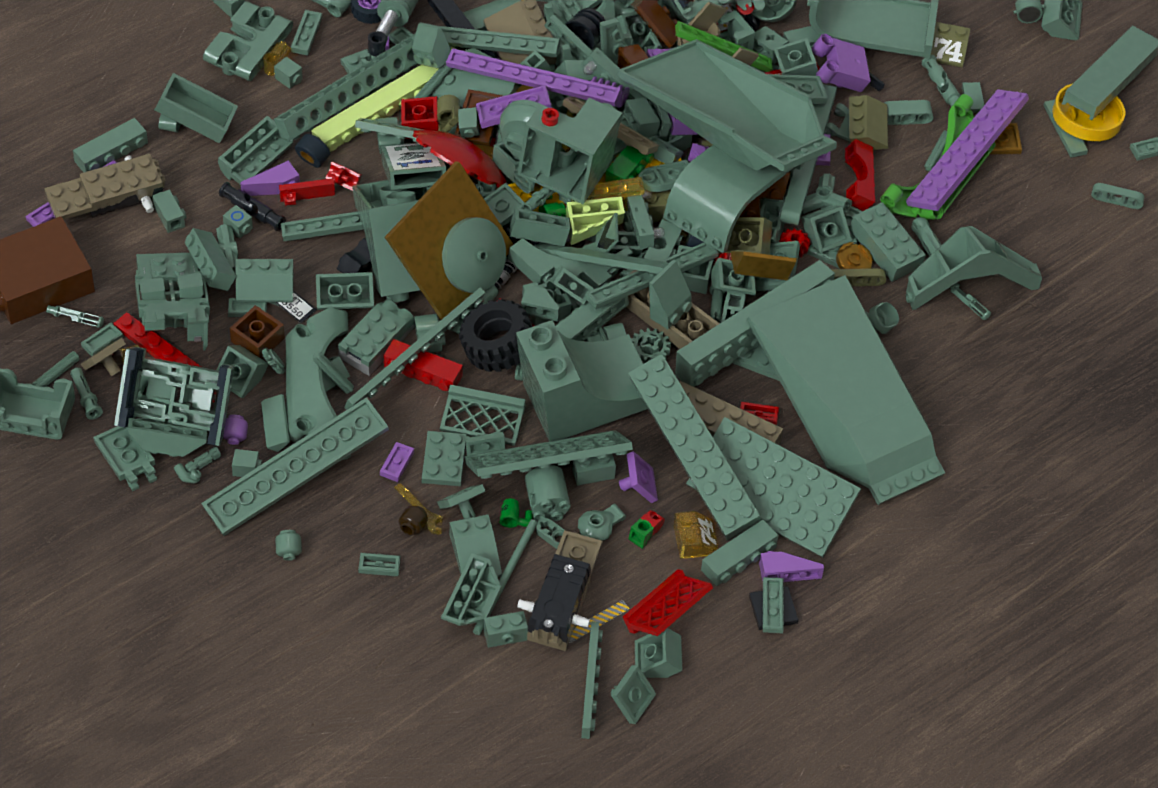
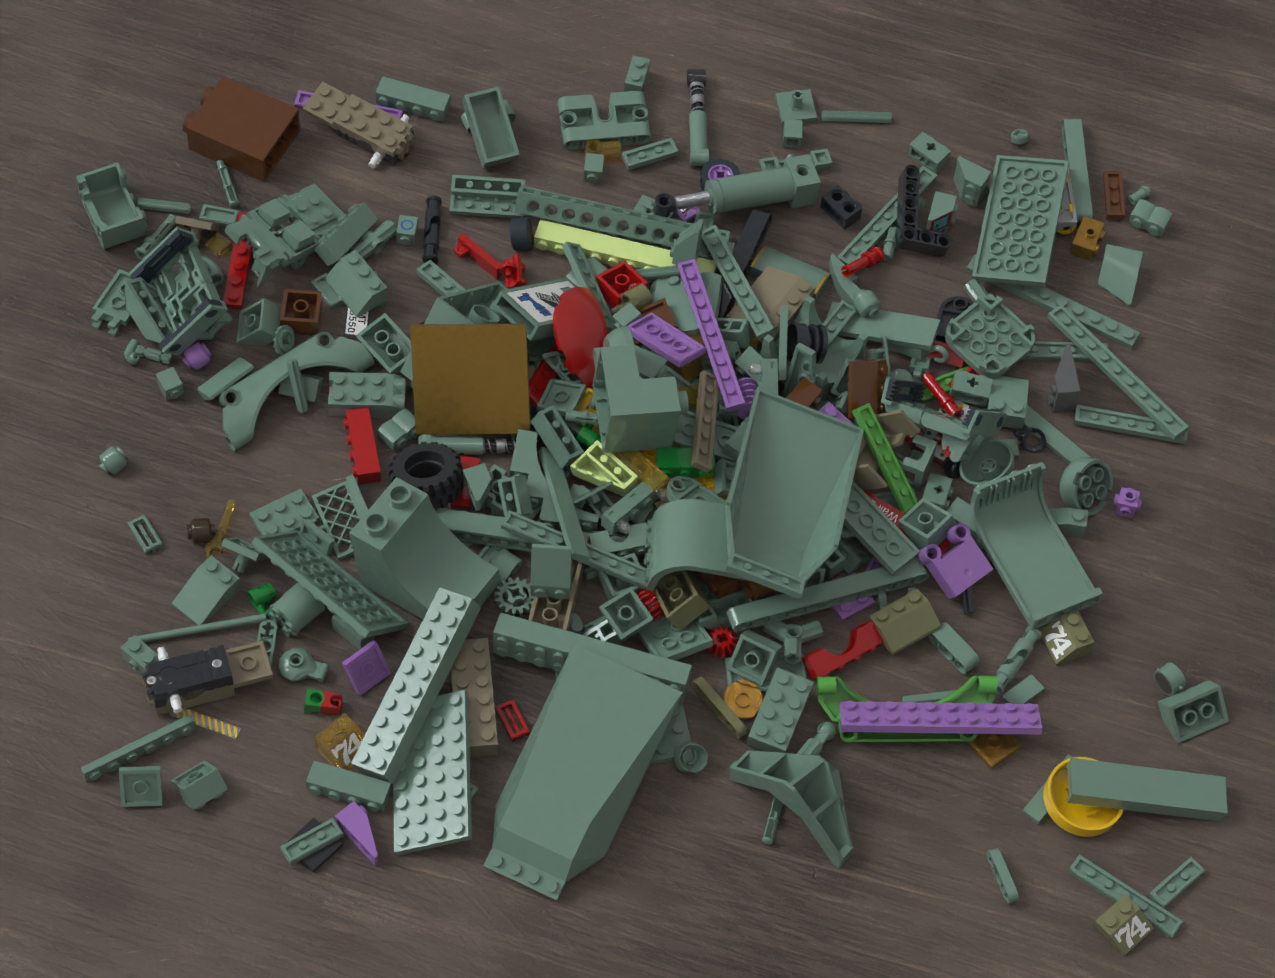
camera: 55 degrees right, 5 degrees up
(169, 211) = (379, 178): sand green brick -> none
(268, 181) = (475, 228): medium lavender slope -> none
(295, 466) = (185, 416): sand green plate -> none
(397, 462) = (253, 485): medium lavender plate -> none
(421, 345) = (355, 427): sand green plate -> none
(473, 593) = (153, 613): sand green wedge -> none
(474, 254) = (482, 391): sand green dish -> none
(554, 117) = (625, 356): red bush -> none
(666, 594) = (256, 754): red fence -> none
(762, 265) = (653, 623): pearl gold slope -> none

